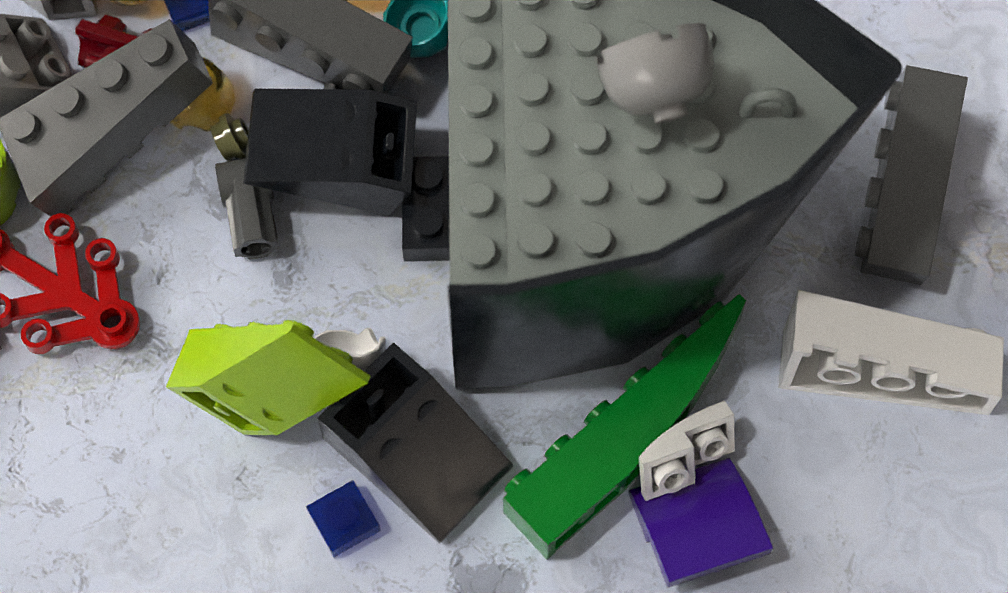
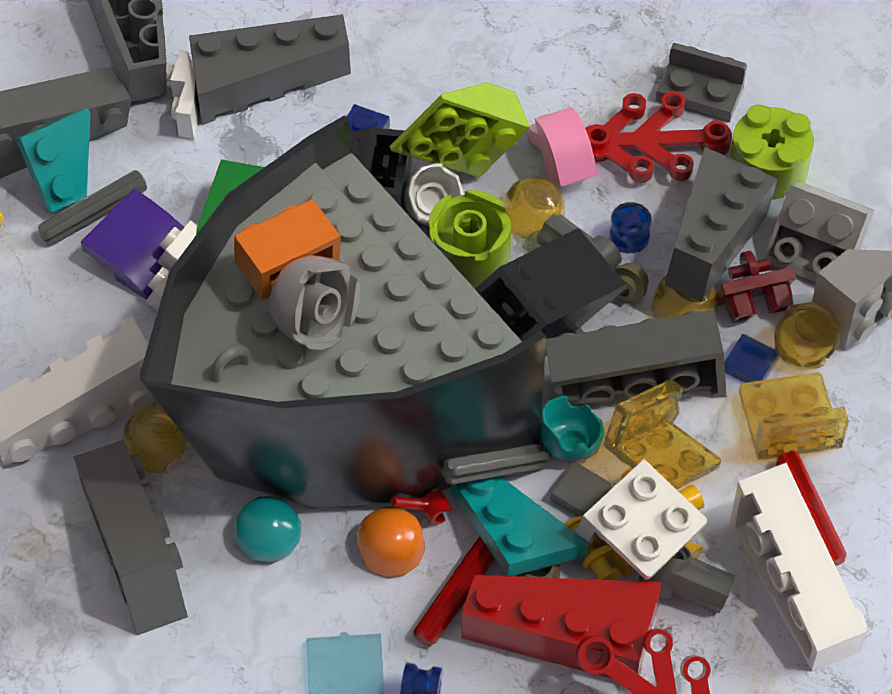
camera: 145 degrees right, 10 degrees down
(156, 326) = (564, 147): none -> bright pink brick
(171, 185) = (629, 217): none -> clear blue wheel
(247, 290) = (531, 204): none -> clear yellow hair
(345, 246) = (472, 233): none -> lime brick
(639, 152) = (271, 245): none -> orange brick
(822, 269) = (153, 438): none -> clear yellow hair

